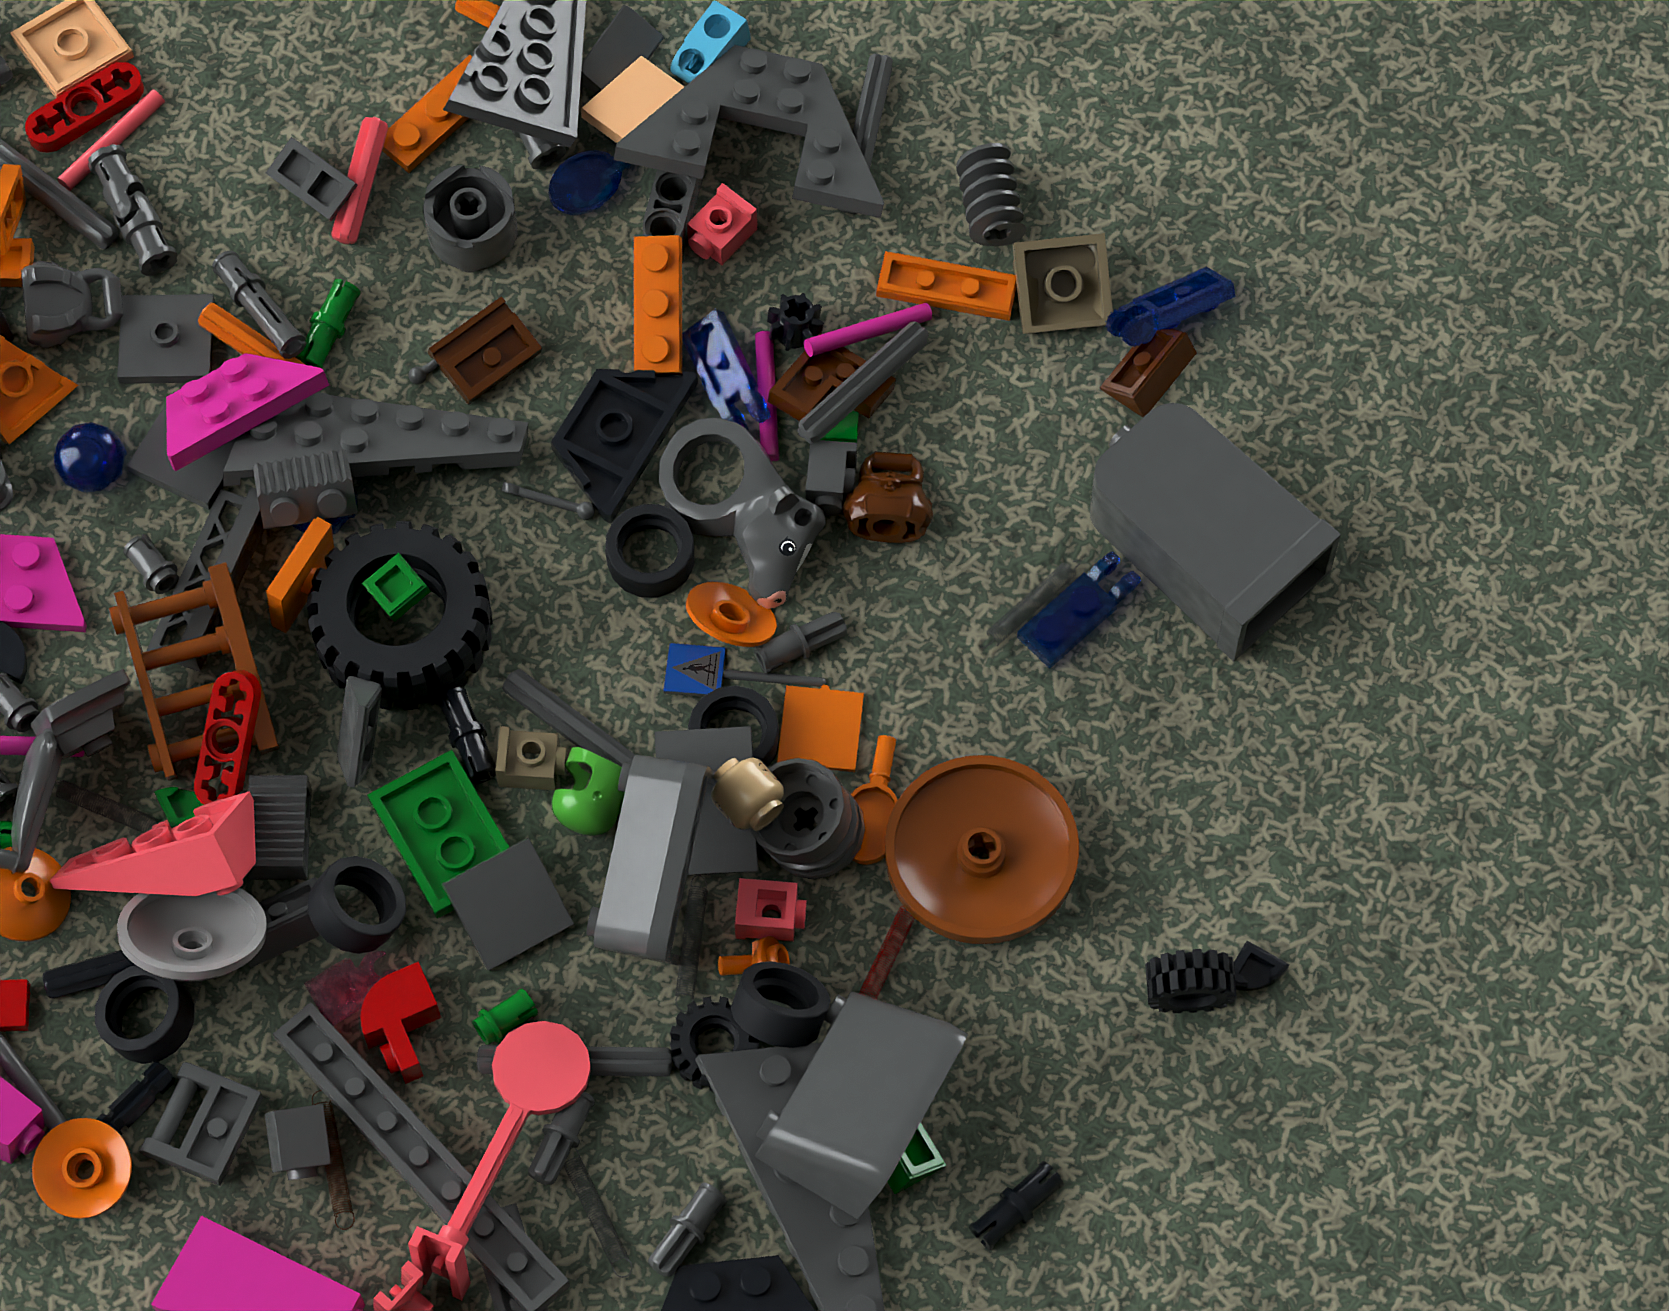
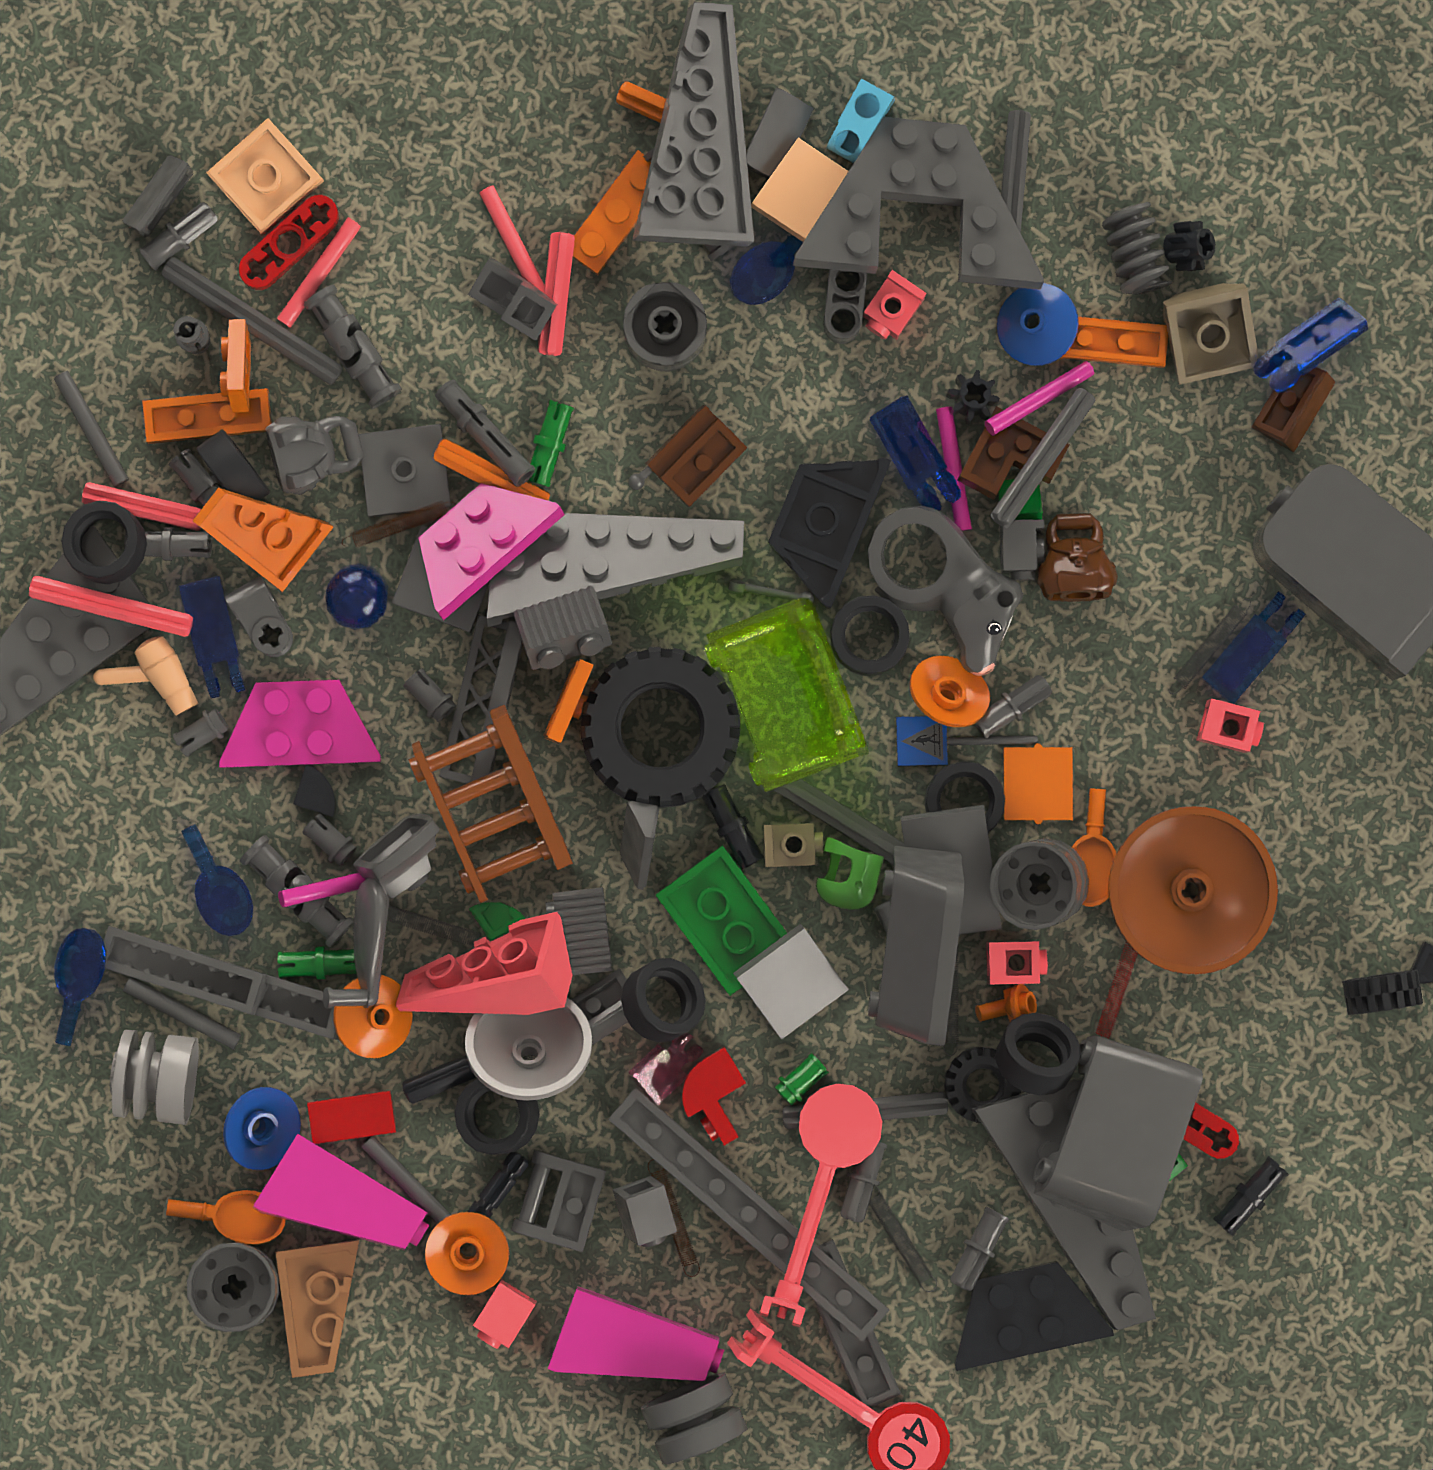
camera: 10 degrees left, 20 degrees up
(112, 1244) = (503, 1315): none -> coral brick
(182, 373) = (397, 519): none -> reddish brown piece
(223, 702) = (541, 852): red beam -> none
(320, 122) = (511, 237): none -> coral bar
(396, 587) = (659, 717): green tile -> none
(548, 589) = (788, 693): none -> clear neon green windscreen
(658, 304) = (847, 397): orange plate -> none
(747, 793) = (993, 882): tan head -> none
(884, 270) = (1050, 338): none -> blue dish
(974, 1113) = (1216, 1124): none -> red beam
(1038, 668) = (1212, 723): none -> coral brick
(1048, 197) = (1189, 246): none -> black gear

